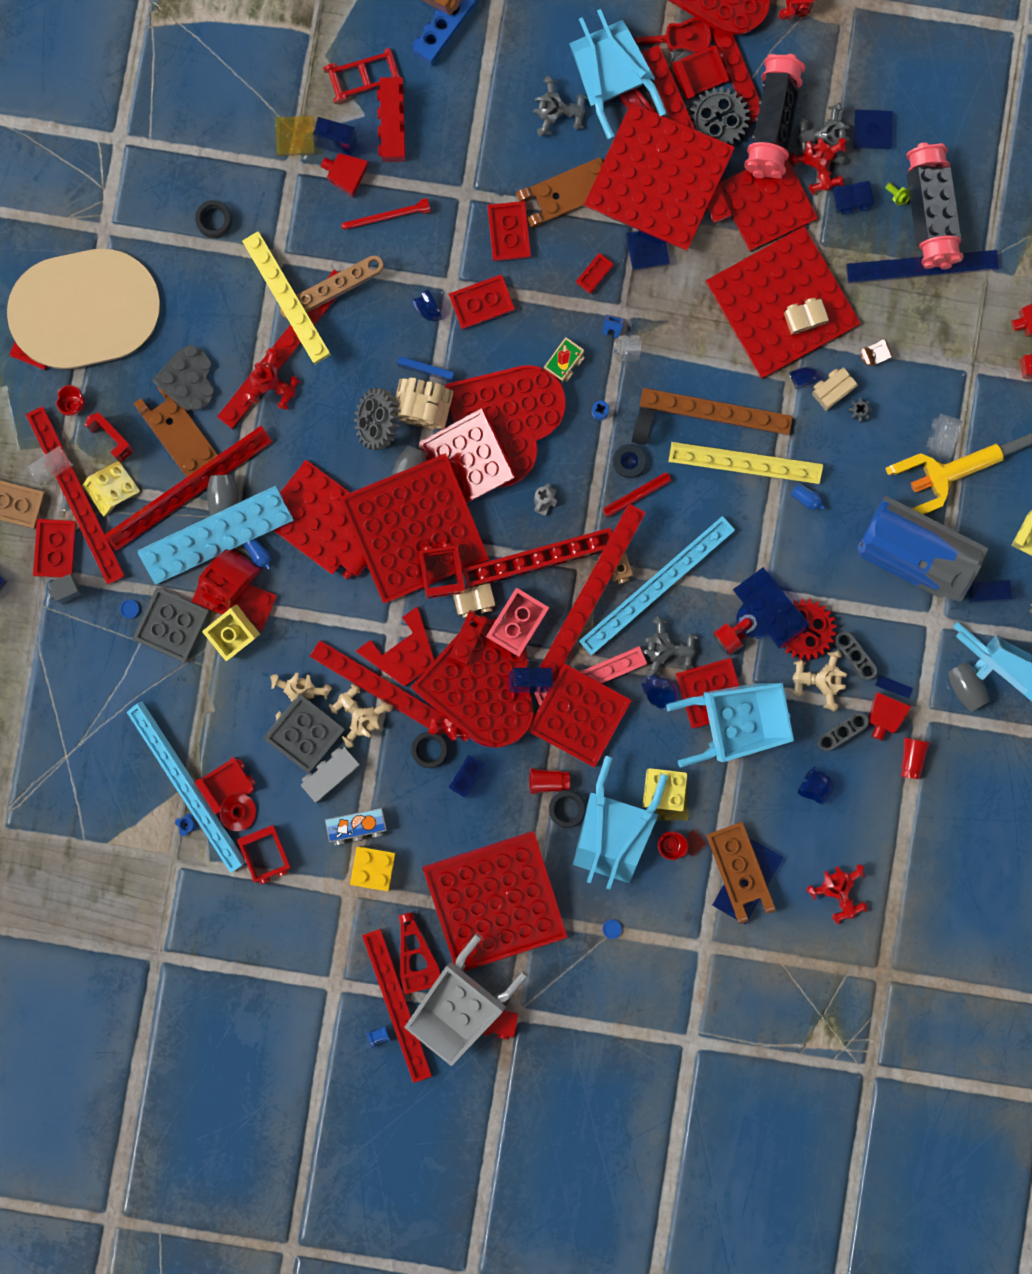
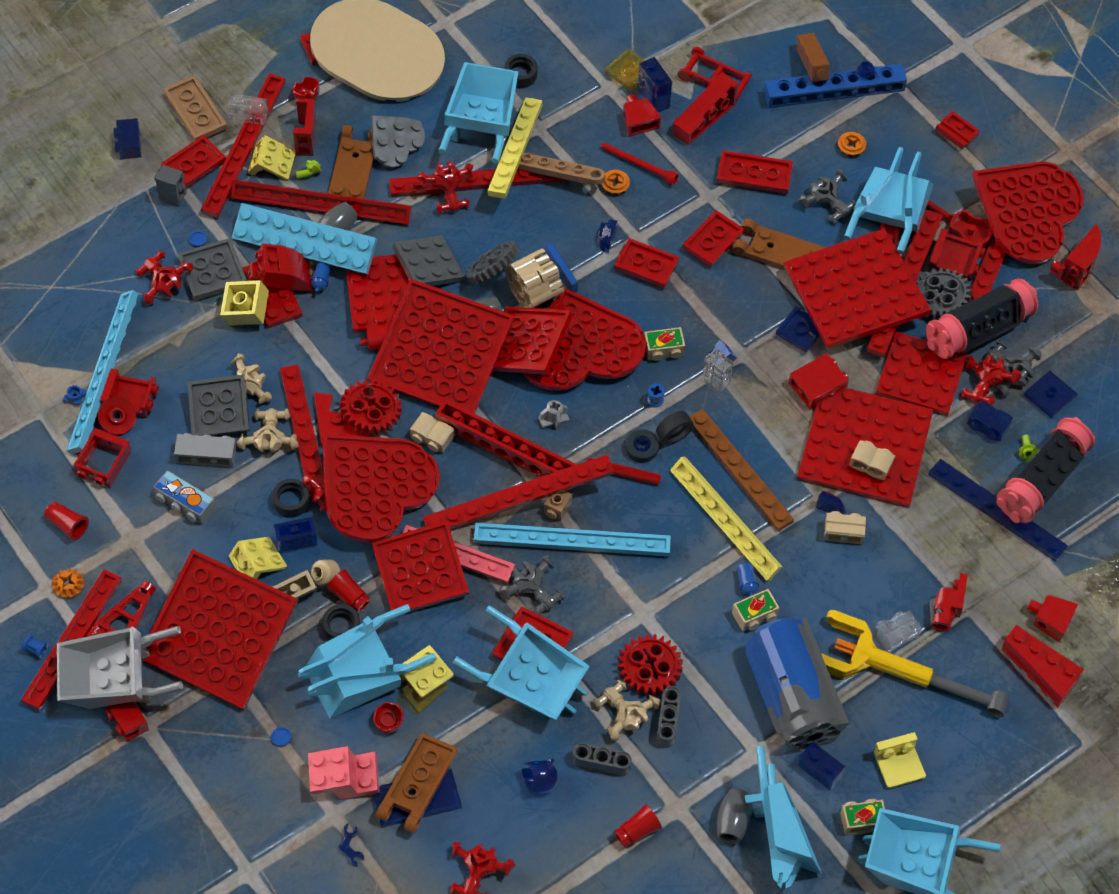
camera: 45 degrees right, 25 degrees down
(147, 669) = (163, 278): none -> red piece
(150, 465) = (312, 168): none -> lime plate
(226, 286) = (481, 103): none -> medium azure piece
(293, 926) = (67, 520): none -> red plant
(324, 461) = (428, 260): none -> dark grey plate
(349, 959) = (69, 590): none -> orange gear
(372, 869) = (162, 534): yellow brick -> none
(389, 243) = (610, 178): none -> orange gear
(408, 608) = (370, 407): none -> red gear
(447, 590) = (419, 401): red window -> none
(457, 819) = (256, 557): none -> light yellow bracket
(467, 638) = (398, 445): red plate -> none
(481, 139) = (754, 172): none -> red plate
(509, 818) = (298, 585): none -> tan brick
(517, 622) = (446, 469): coral slope -> none
(517, 783) = (324, 571): none -> tan head
(522, 34) = (852, 138): none -> orange gear
(530, 680) = (410, 508): clear blue brick -> none
(594, 273) = (746, 312): red plate -> none
(660, 691) = (497, 599): clear blue hair -> none
(686, 916) = (343, 773): none -> coral bracket
(694, 842) = (407, 734): clear red tile -> none
(703, 282) = (817, 380): none -> red panel
(734, 959) = (344, 846): none -> clear blue arm
(763, 613) = (631, 624): clear blue plate -> none
(835, 516) = (755, 610): none -> brick
(859, 416) = (849, 558): dark grey gear -> none
(876, 353) = (901, 533): bracket -> none
(886, 715) = (648, 779): red torso -> none
(893, 686) = (676, 768): clear blue window -> none
(958, 379) = (948, 604): none -> red plate

